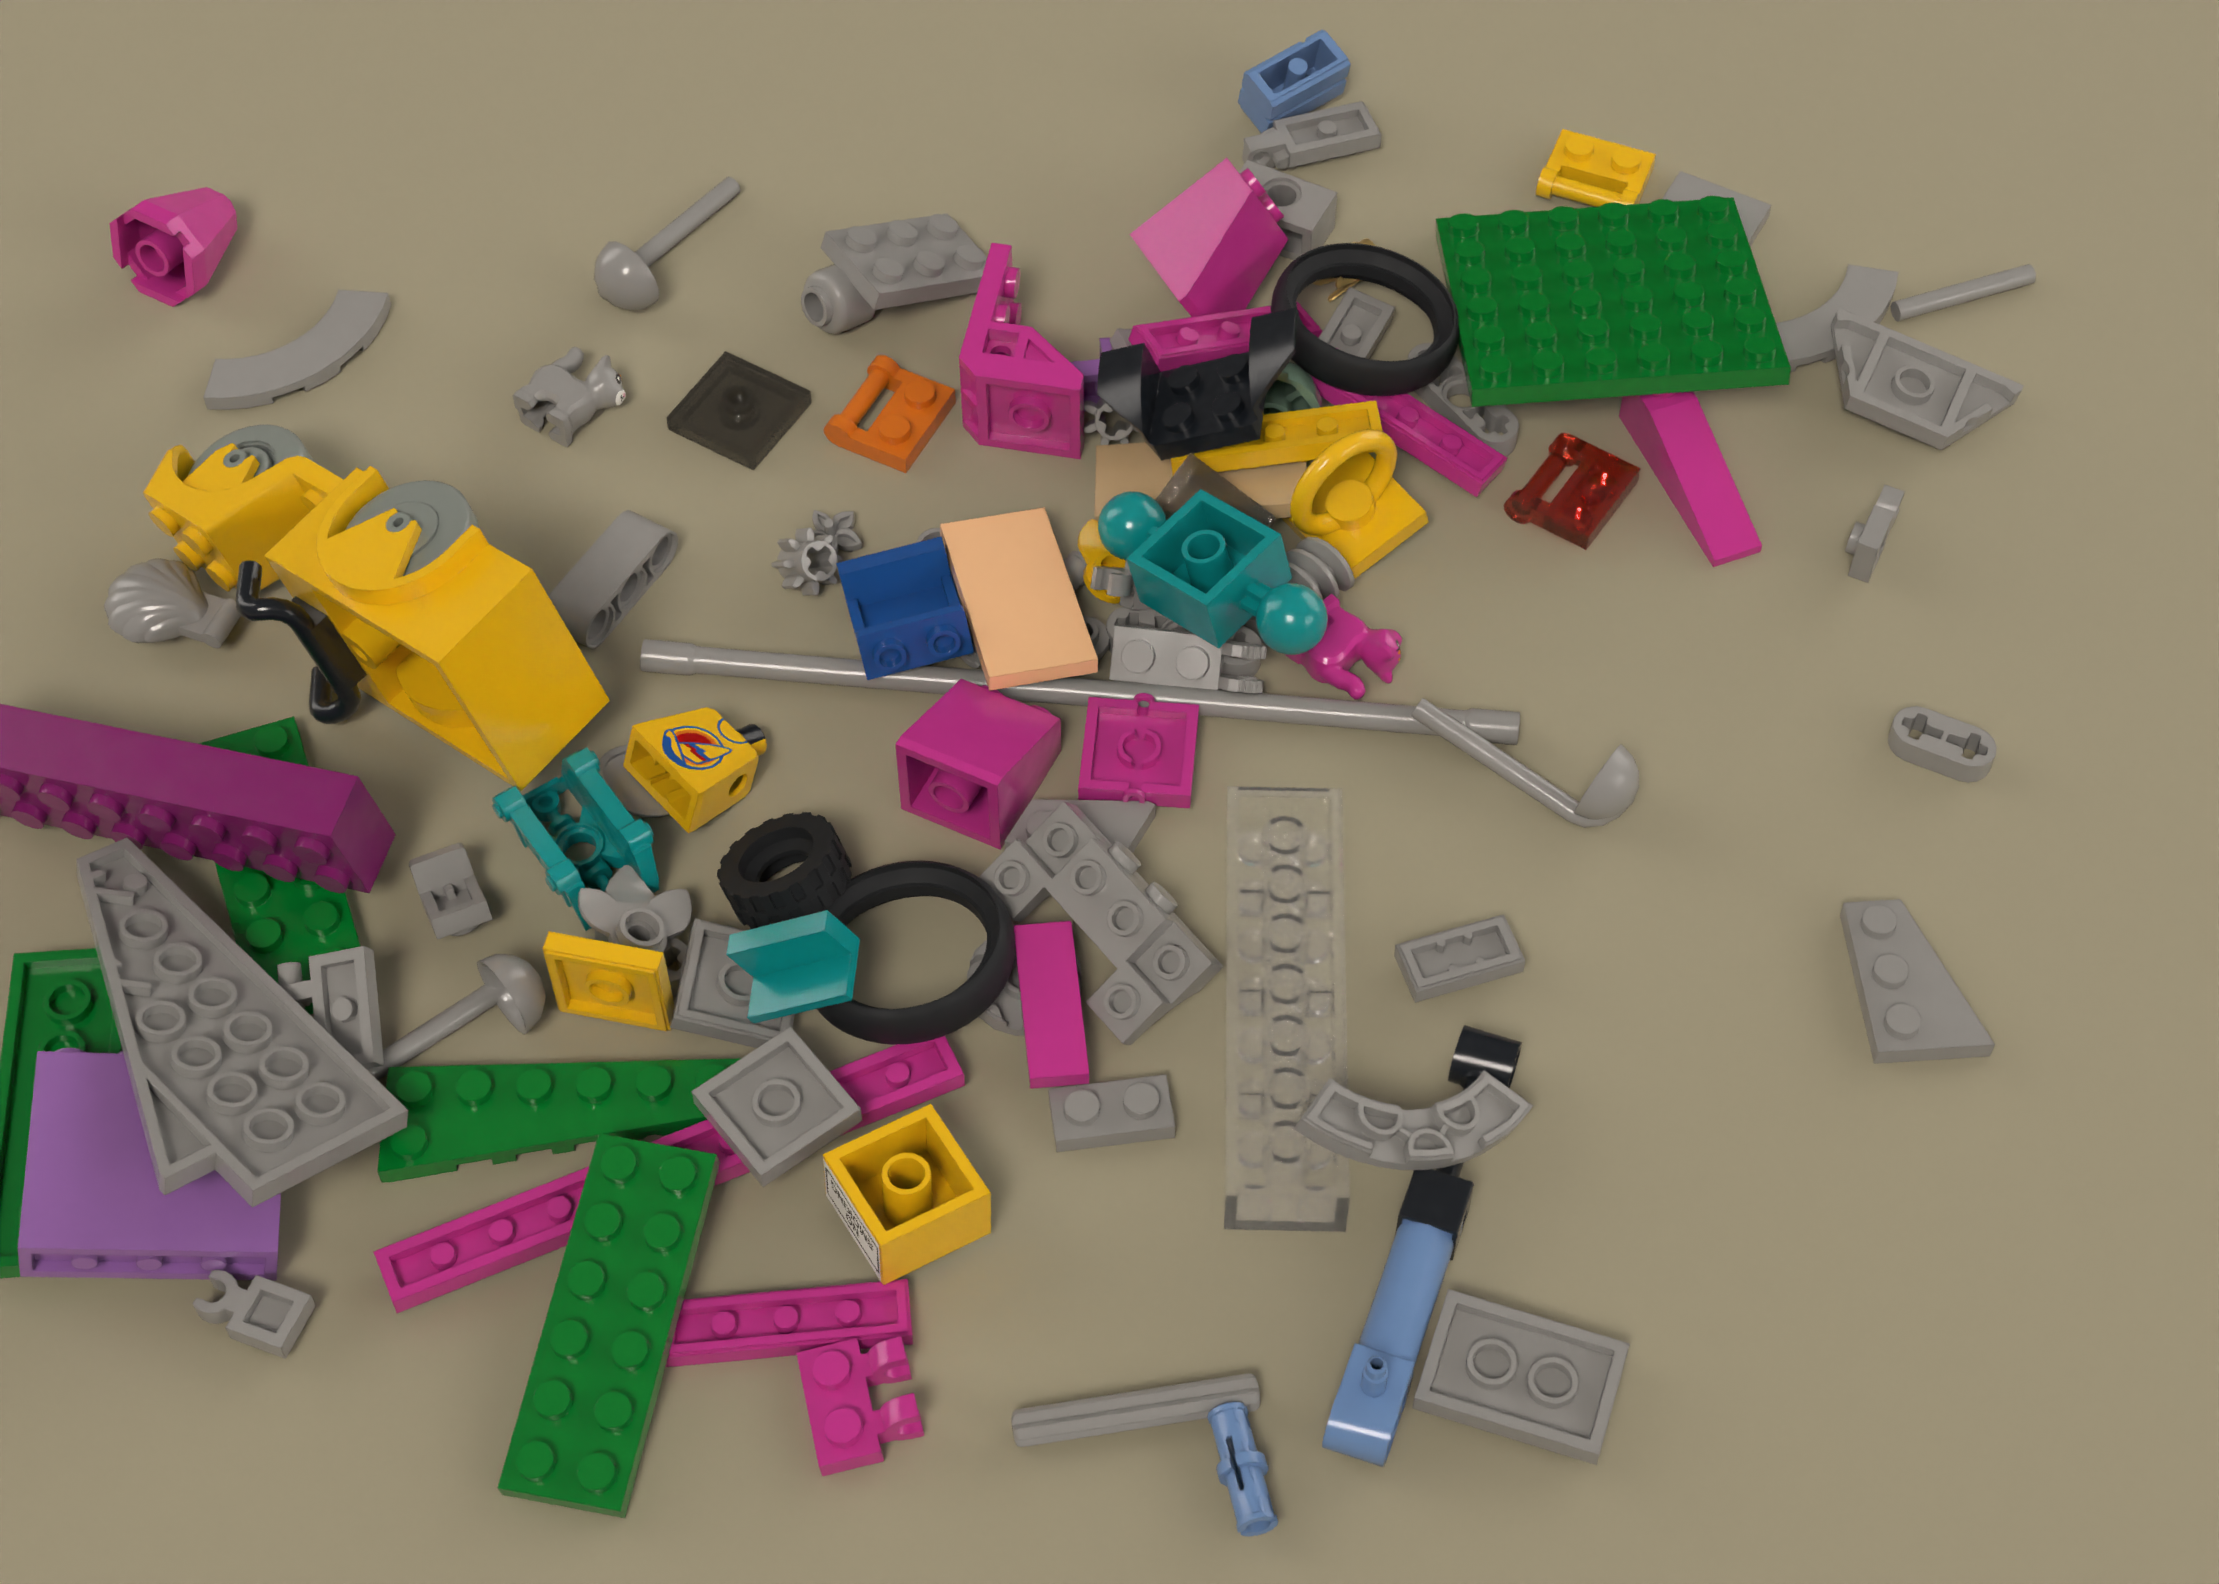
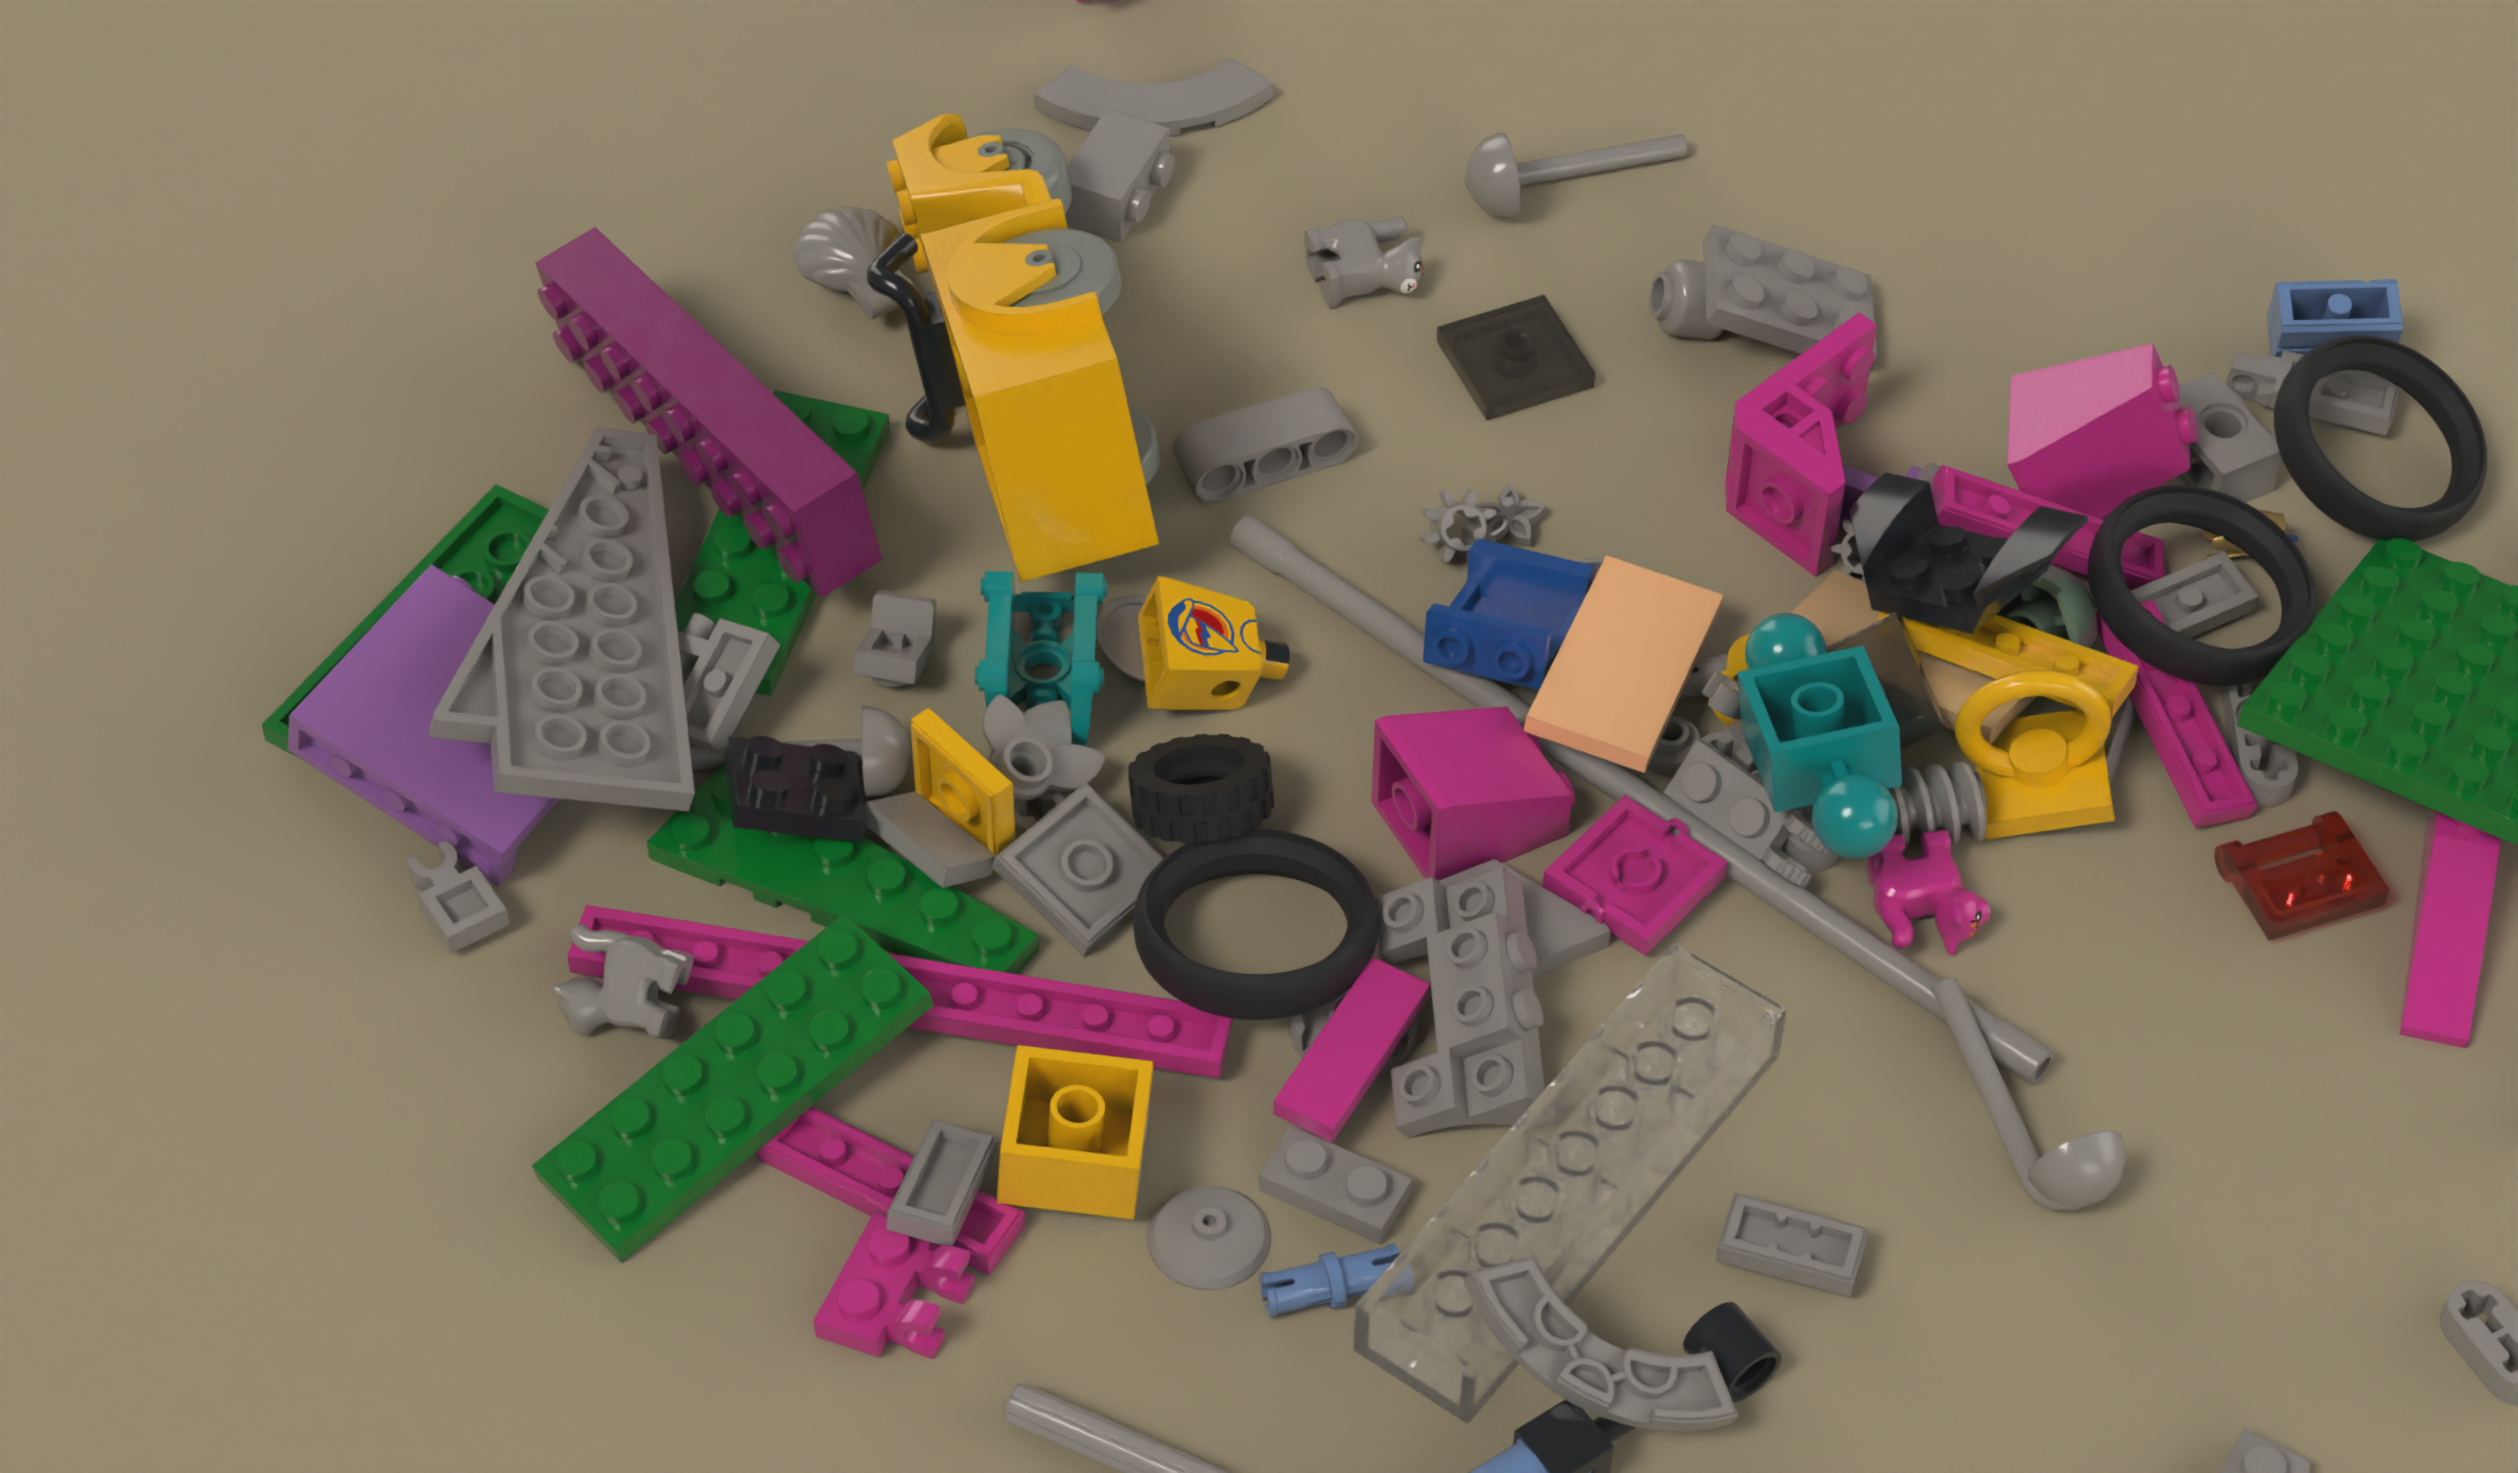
camera: 35 degrees right, 5 degrees down
(325, 419) = (1118, 174): none -> light grey brick
(468, 1304) = (630, 985): none -> light grey animal
(469, 1058) = (794, 788): none -> black plate
(602, 1034) = (929, 839): none -> light grey tile
(776, 1106) = (1020, 985): light grey plate -> none
(796, 964) = (1139, 871): teal panel -> none
(834, 1297) = (941, 1183): none -> light grey tile
(904, 422) = (1664, 451): orange plate -> none
(1050, 1211) = (1209, 1238): none -> light grey piece
(1169, 1187) = (1325, 1281): none -> medium blue pin
(1364, 190) = (2424, 383): none -> black tyre

